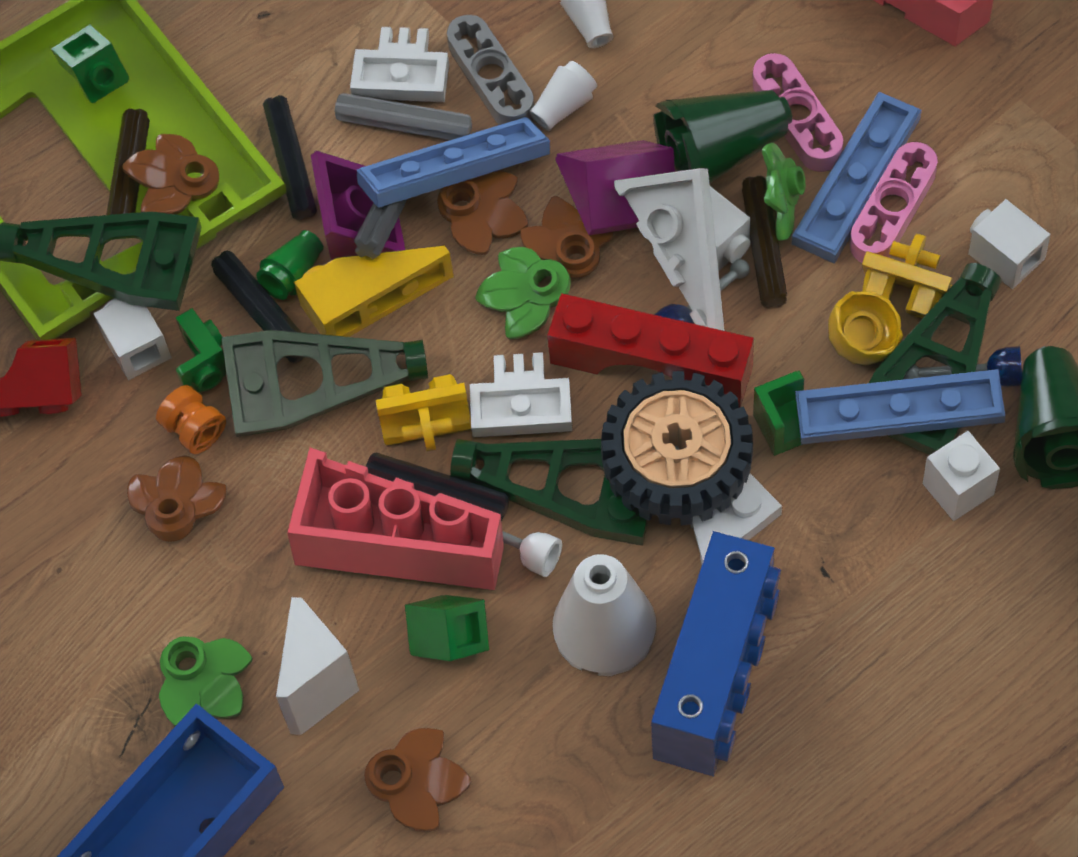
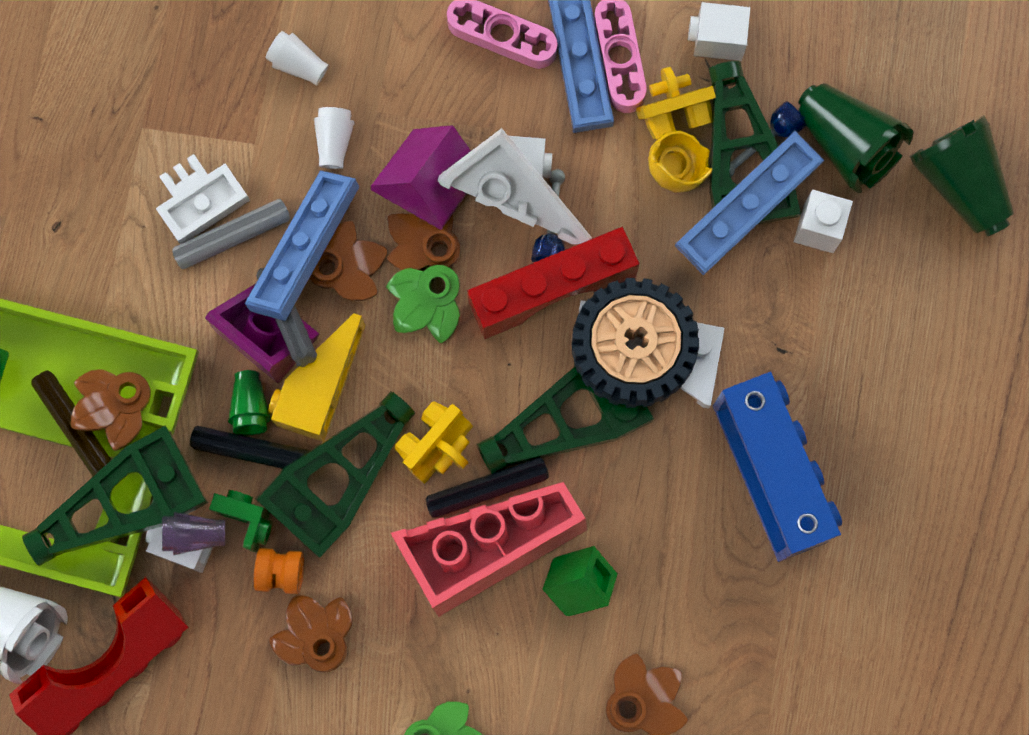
camera: 45 degrees left, 15 degrees up
(138, 318) = (191, 533): none -> clear purple cone
(289, 157) = (175, 323): black axle -> none
(313, 670) = (526, 683): white slope -> none
(489, 53) = (232, 153): light grey beam -> none
(520, 401) = (492, 383): white hinge -> none
(537, 551) = (592, 482): white hinge -> none
(603, 618) = (665, 507): white cone -> none
(720, 129) = (470, 89): dark green cone -> none
(764, 243) = (557, 143): dark brown axle -> none
(777, 412) = (671, 265): green panel -> none
(784, 186) = (540, 94): bright green plate -> none

